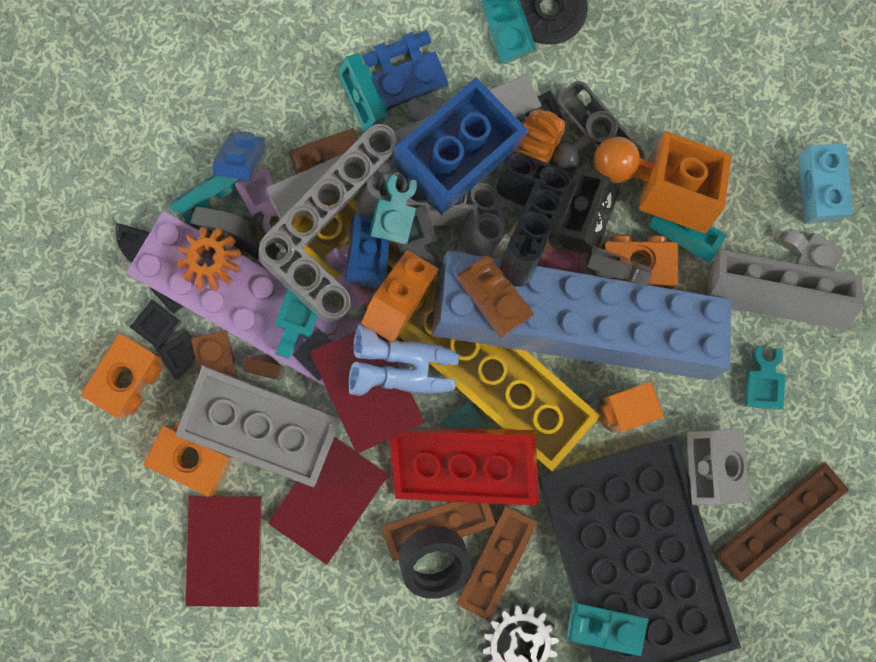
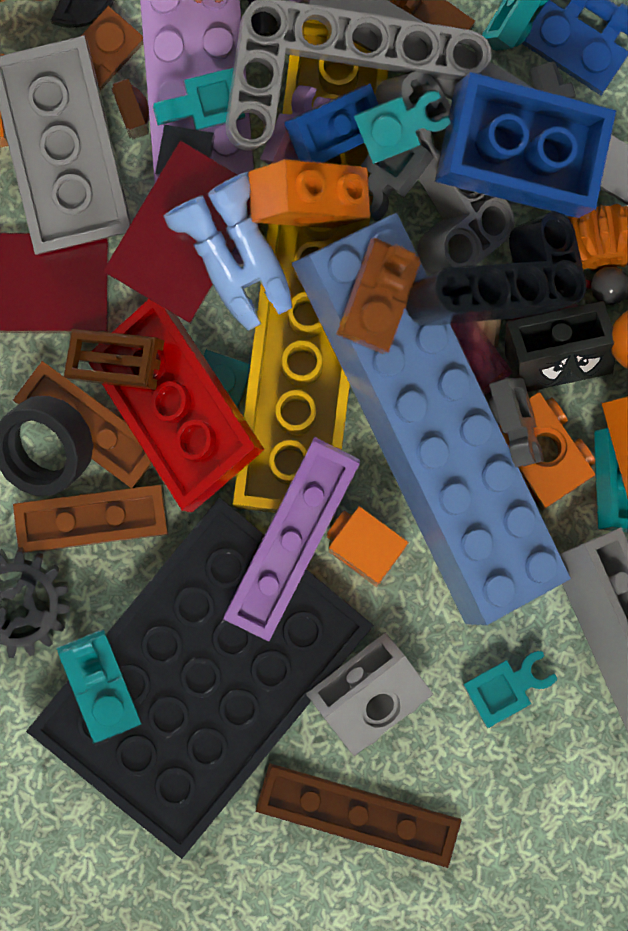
camera: 60 degrees right, 0 degrees up
(429, 464) = (146, 363): none -> reddish brown tile
(599, 450) = (291, 538): none -> medium lavender plate

